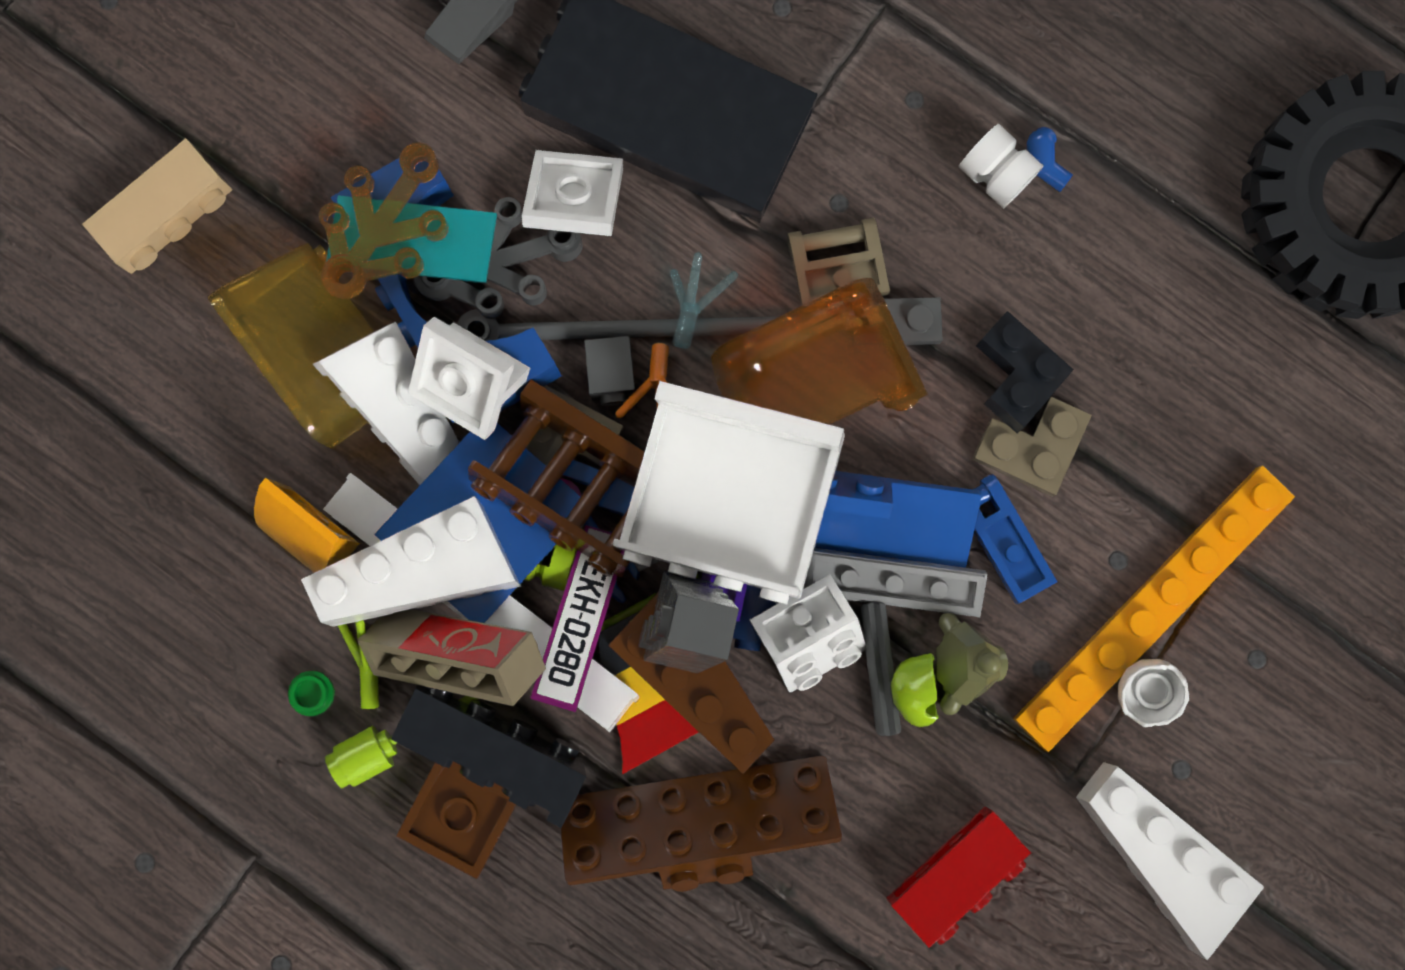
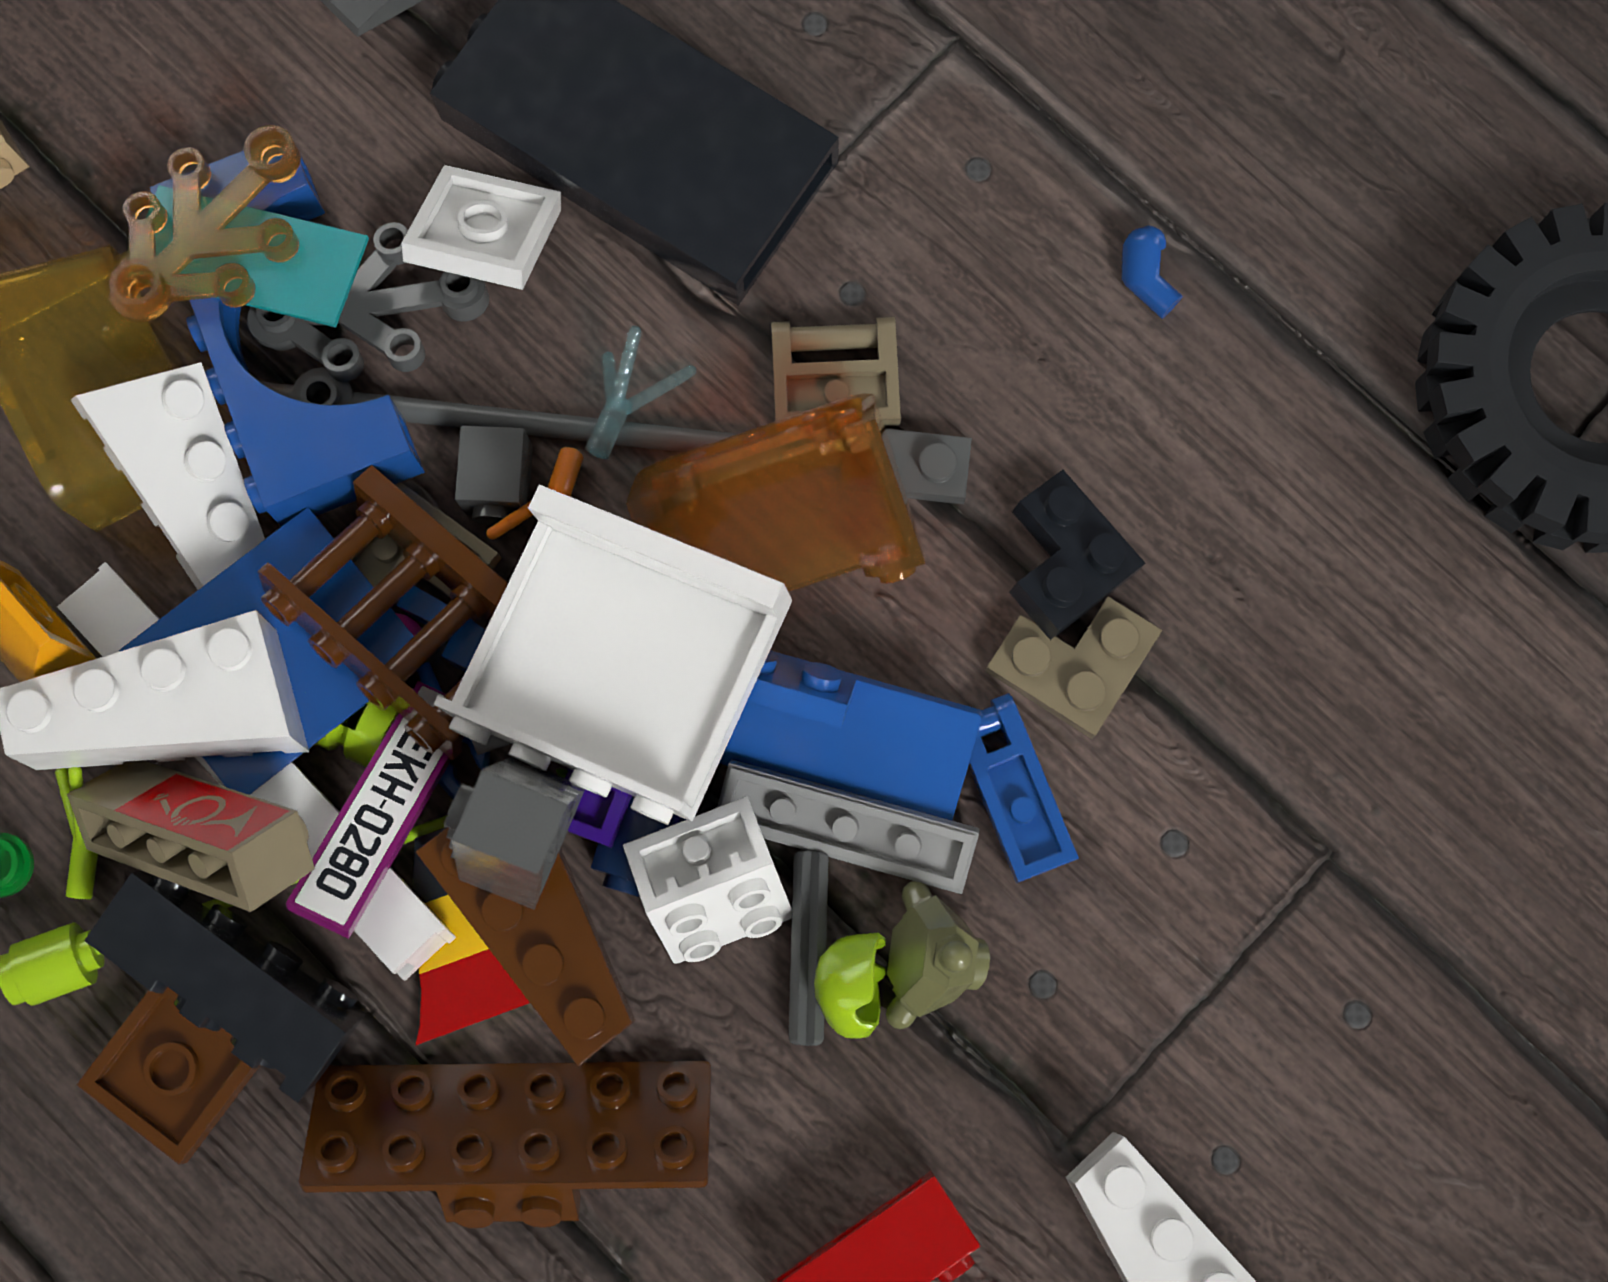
camera: 15 degrees right, 5 degrees down
(464, 376) = (274, 443): white bracket -> none
(1000, 166) = (1079, 267): white wheel -> none
(1153, 608) = (1213, 919): light orange plate -> none
(1153, 692) = (1195, 1038): white hair -> none

